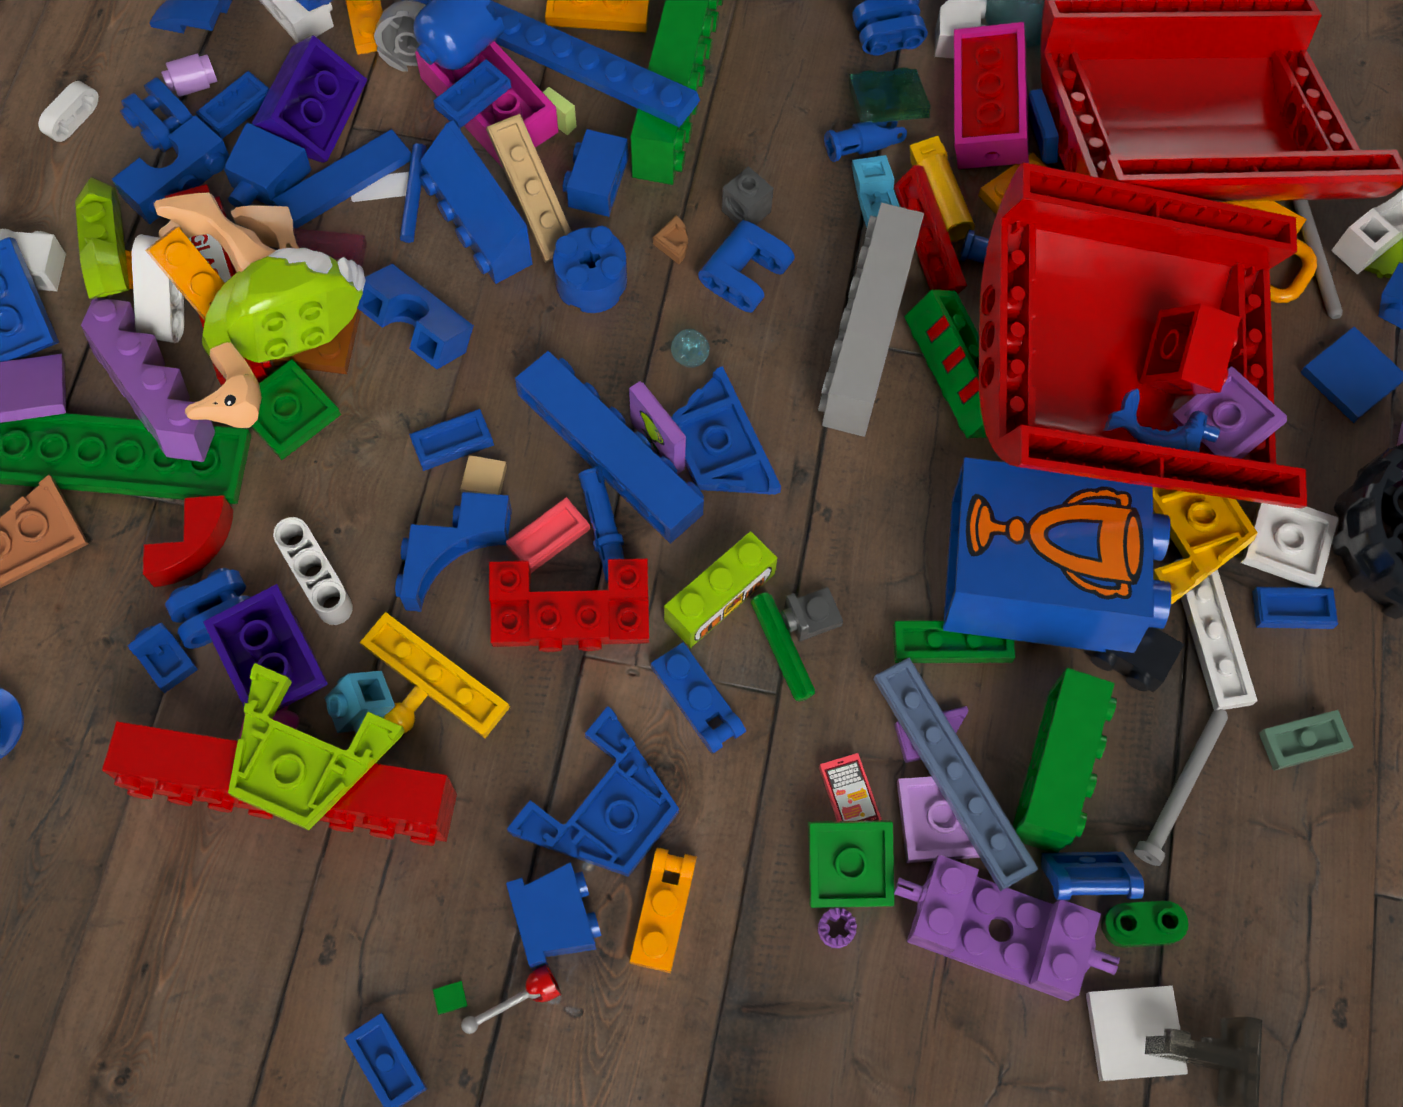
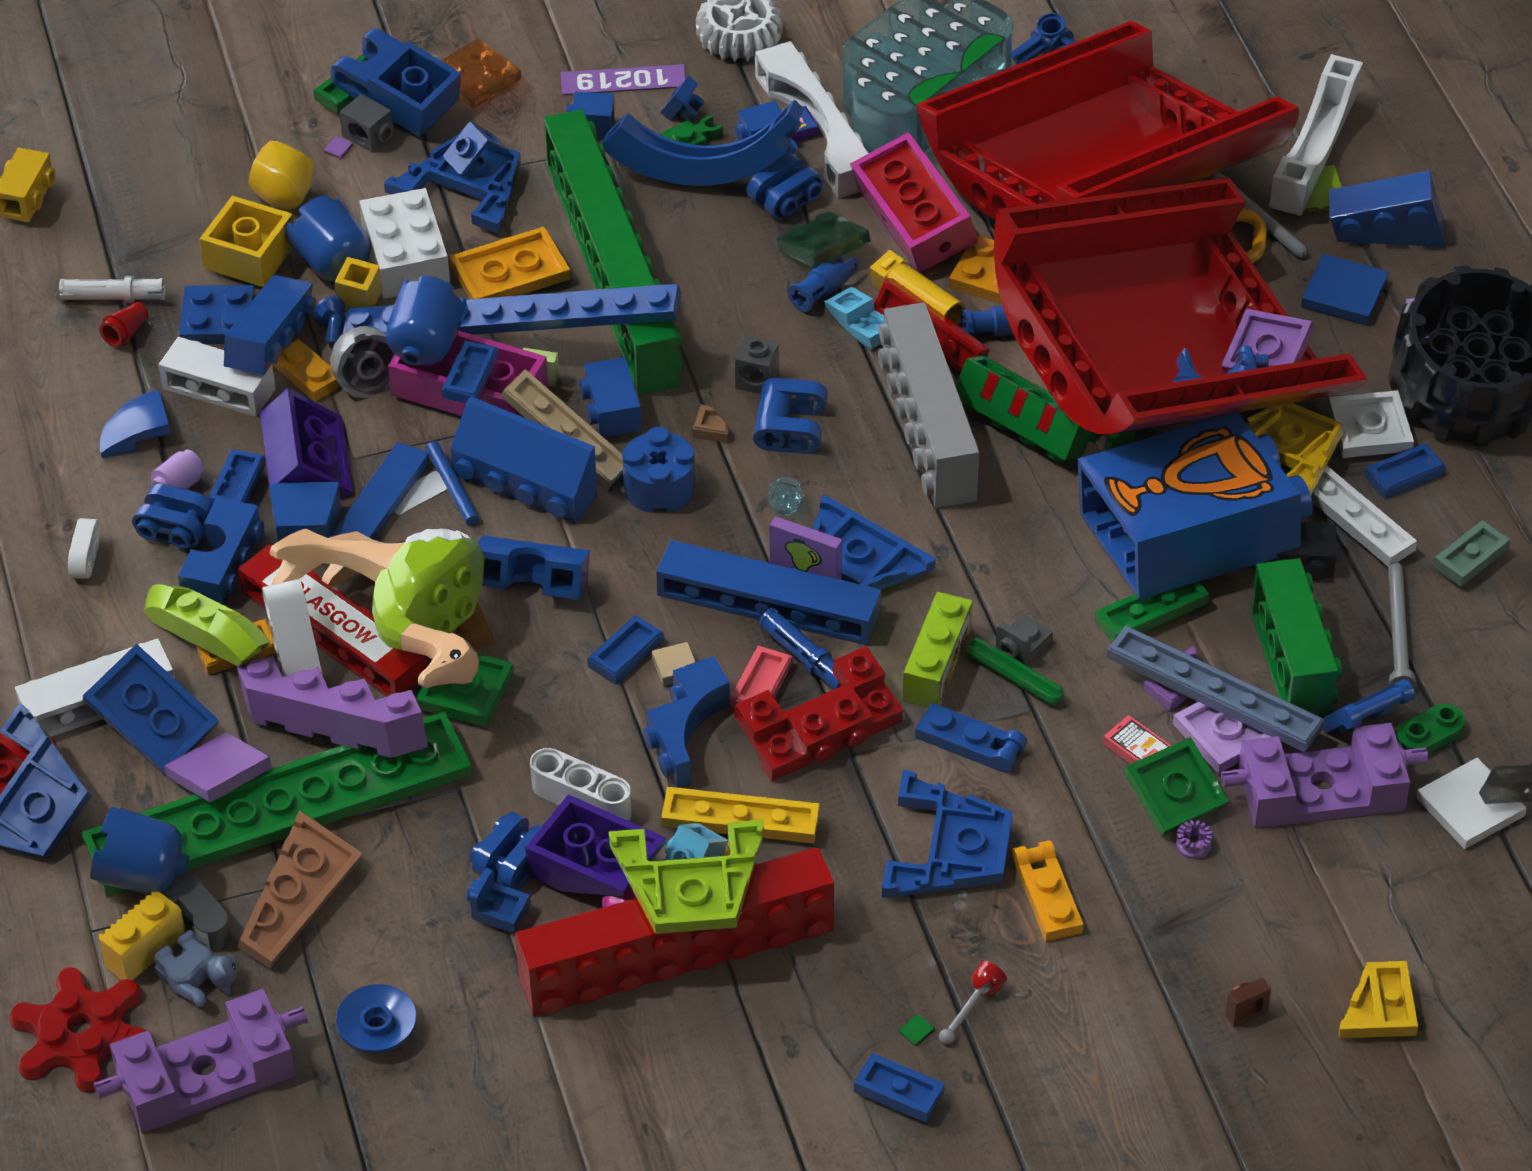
camera: 25 degrees left, 20 degrees down
(186, 269) = (333, 603): light orange plate -> none
(205, 532) = (454, 831): red brick -> none
(553, 915) = (961, 929): blue hips -> none
(1043, 126) = (981, 212): blue tile -> none
(1190, 350) = (1207, 307): red brick -> none

